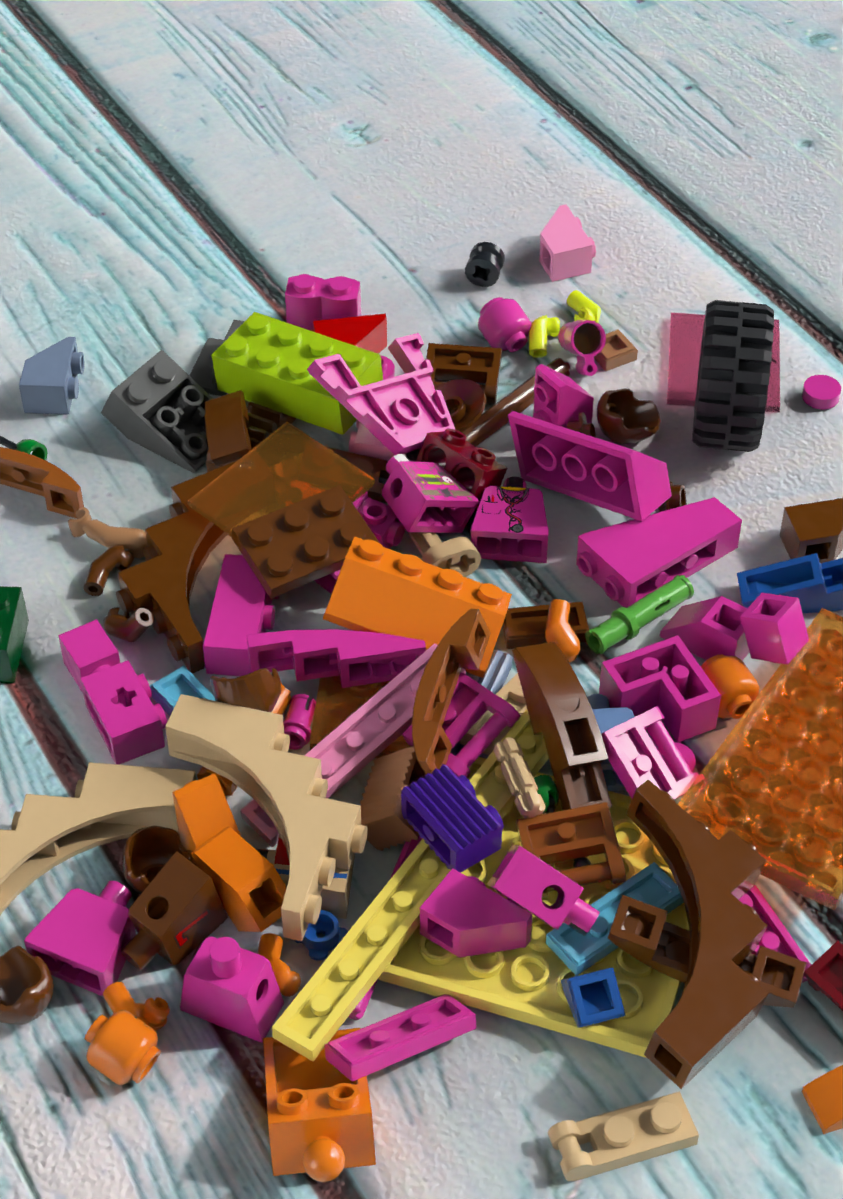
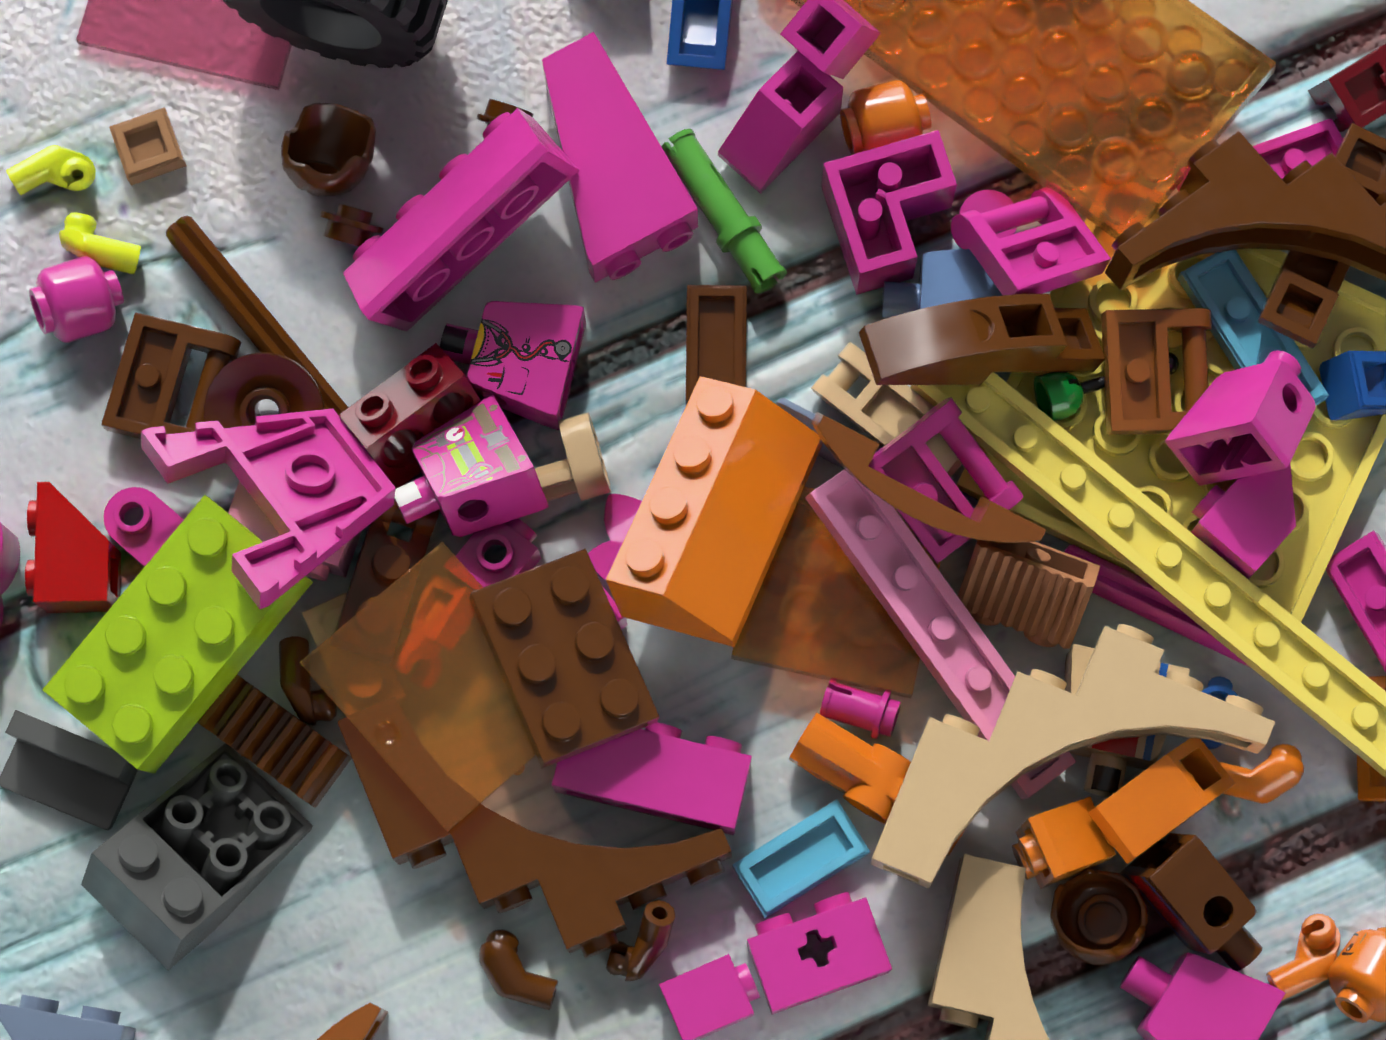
camera: 80 degrees left, 30 degrees up
(131, 538) = (457, 964): medium nougat arm -> none
(227, 427) = (279, 759): reddish brown slope -> none
(232, 988) = (1309, 835): dark pink torso -> none
(255, 690) = (861, 764): reddish brown hair -> none
(352, 655) = (788, 618): dark pink slope -> none
(452, 818) = (1125, 509): dark purple brick -> none
(519, 778) = (1055, 415): tan axle -> none
(559, 398) = (294, 244): dark pink slope -> none
(560, 631) = (753, 326): orange arm -> none
(585, 341) = (148, 185): dark pink piece -> none

